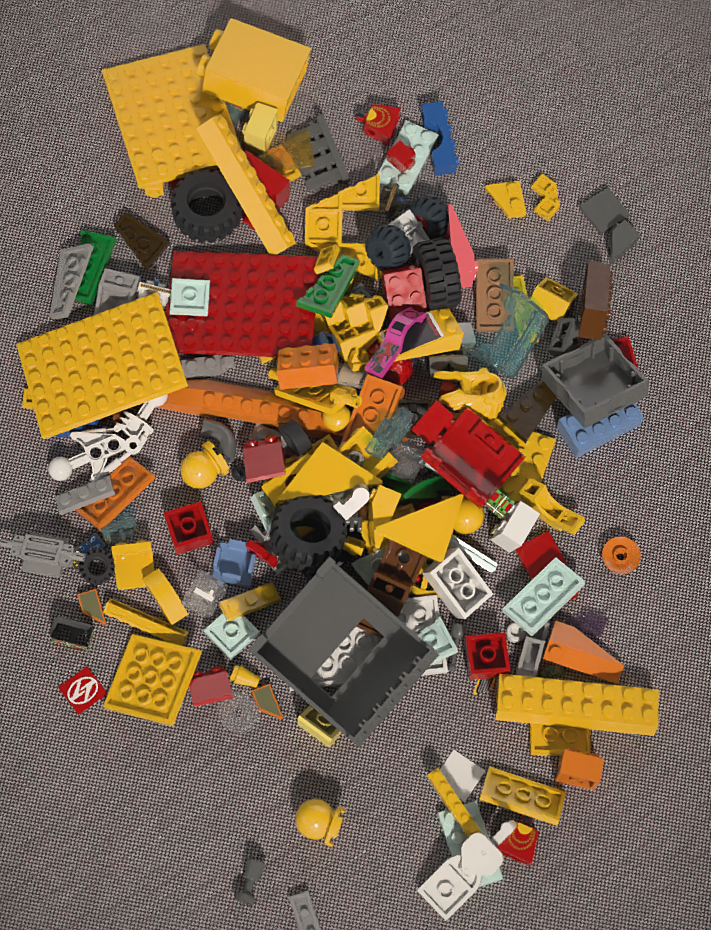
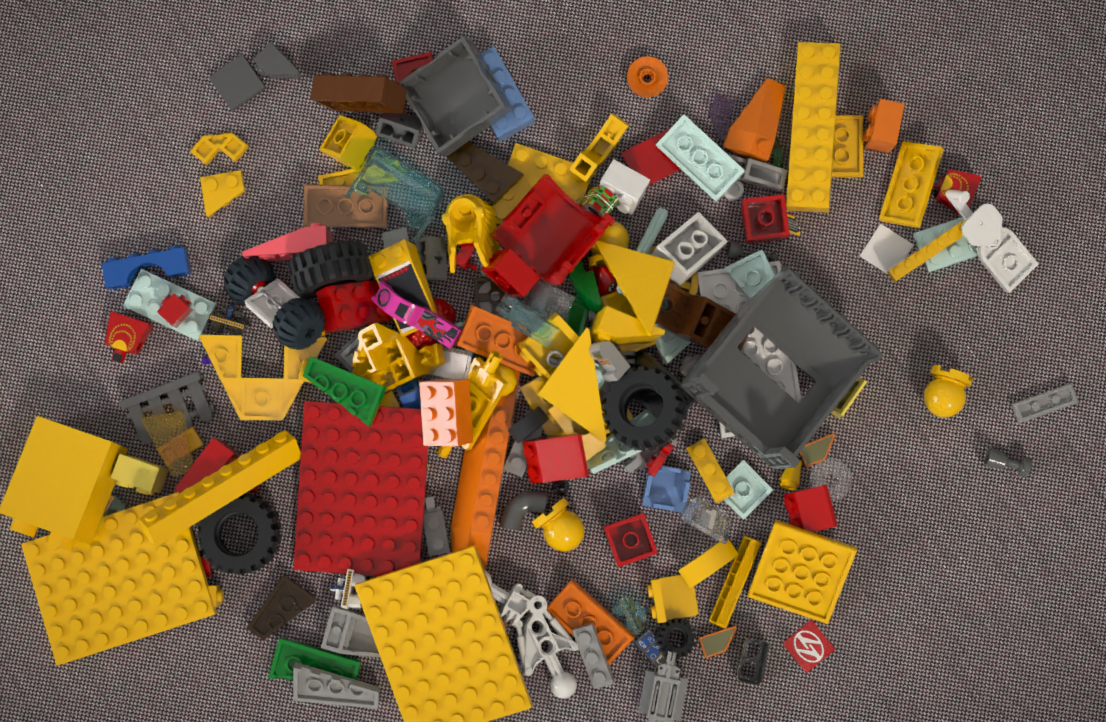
camera: 80 degrees left, 15 degrees up
(189, 297) = (357, 548): light aqua tile -> none
(326, 258) = (308, 393): yellow plate -> none
(354, 546) = (650, 357): yellow plate -> none

